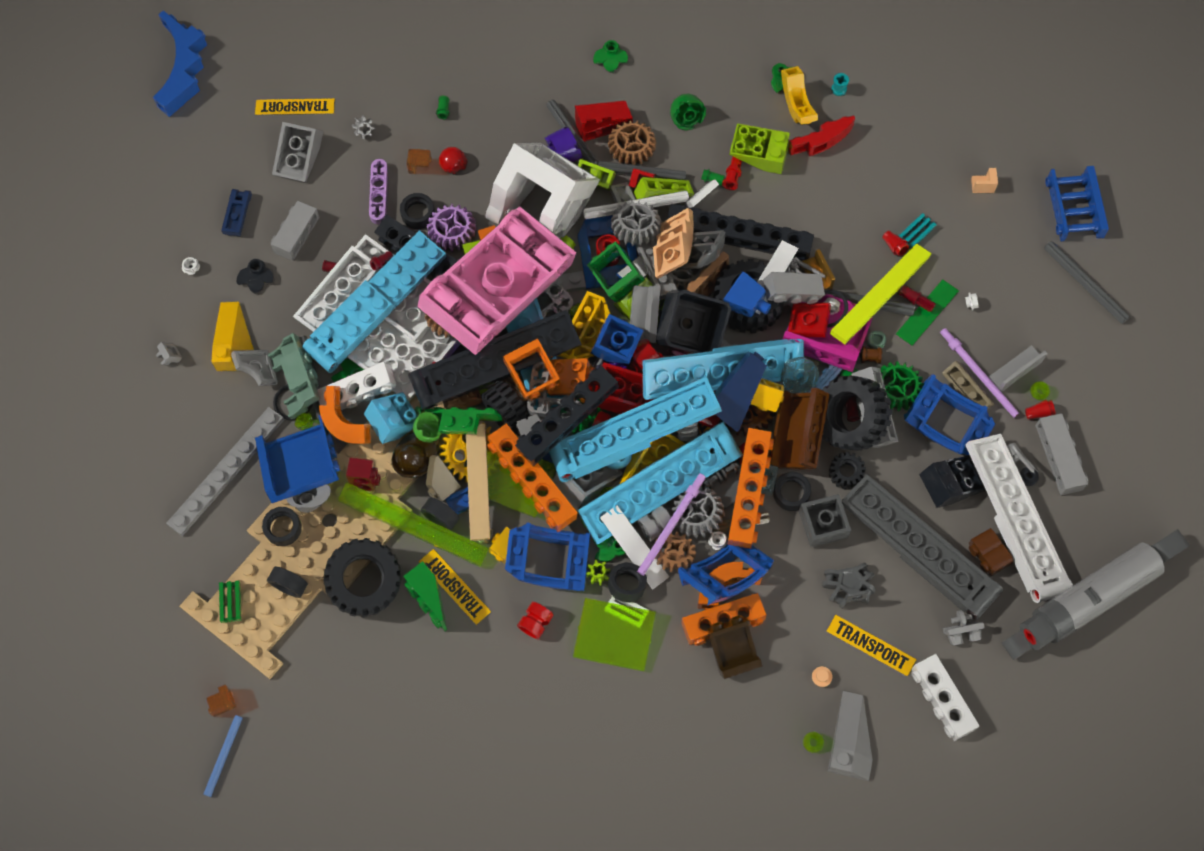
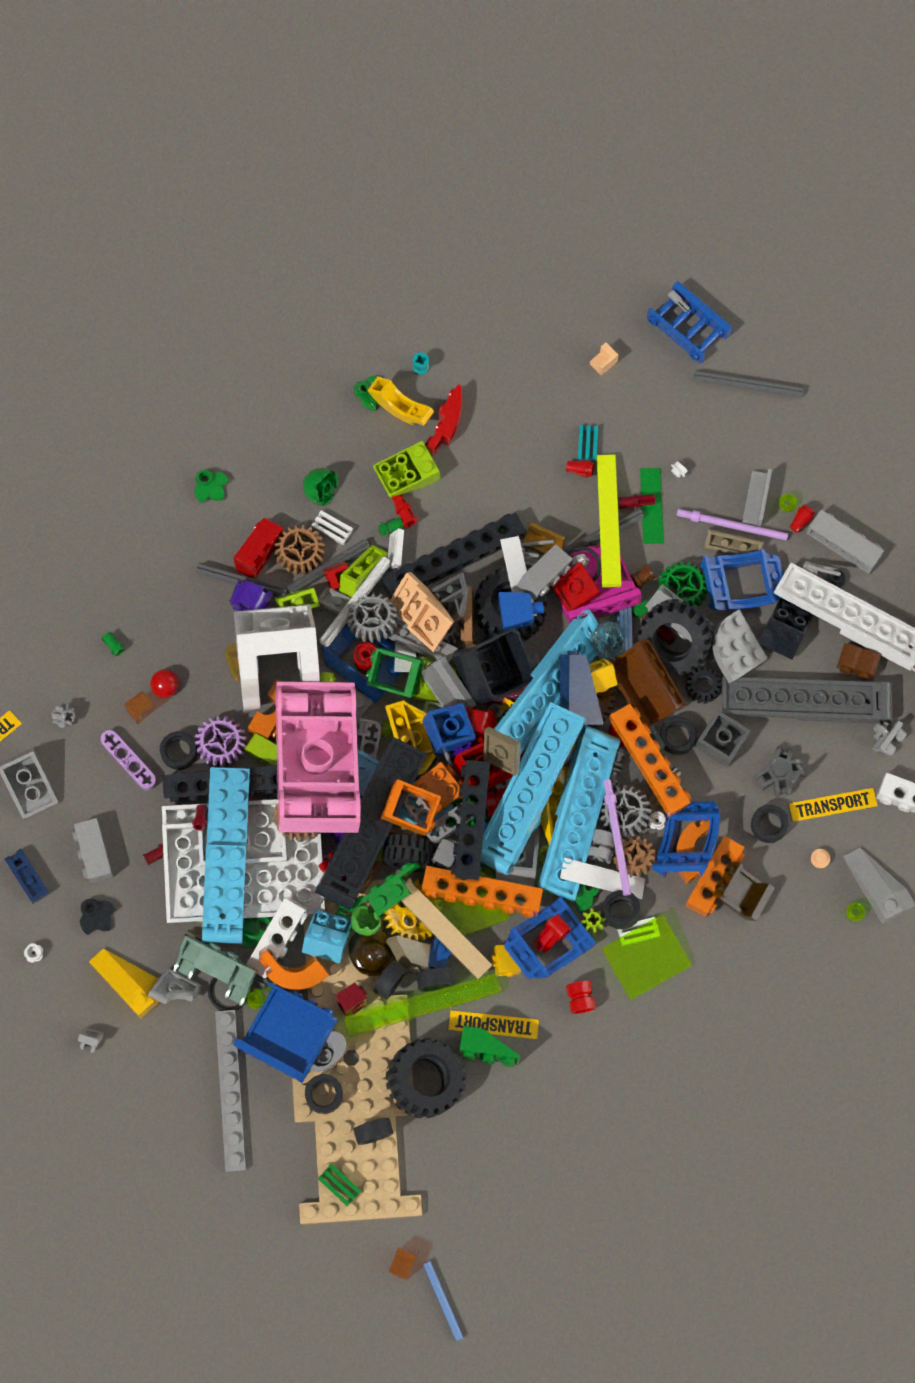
camera: 45 degrees left, 5 degrees up
(404, 484) = (390, 980): none -> black tyre
(561, 554) = (555, 930): none -> red piece
(635, 382) = (502, 751): none -> dark tan plate
(666, 135) = (333, 520): none -> white tile
(804, 600) = (774, 810): none -> black tyre
(876, 339) = (634, 561): sand green tile -> none
(897, 460) = (736, 647): none -> light grey plate
(1081, 180) = (678, 300): none -> light grey pin

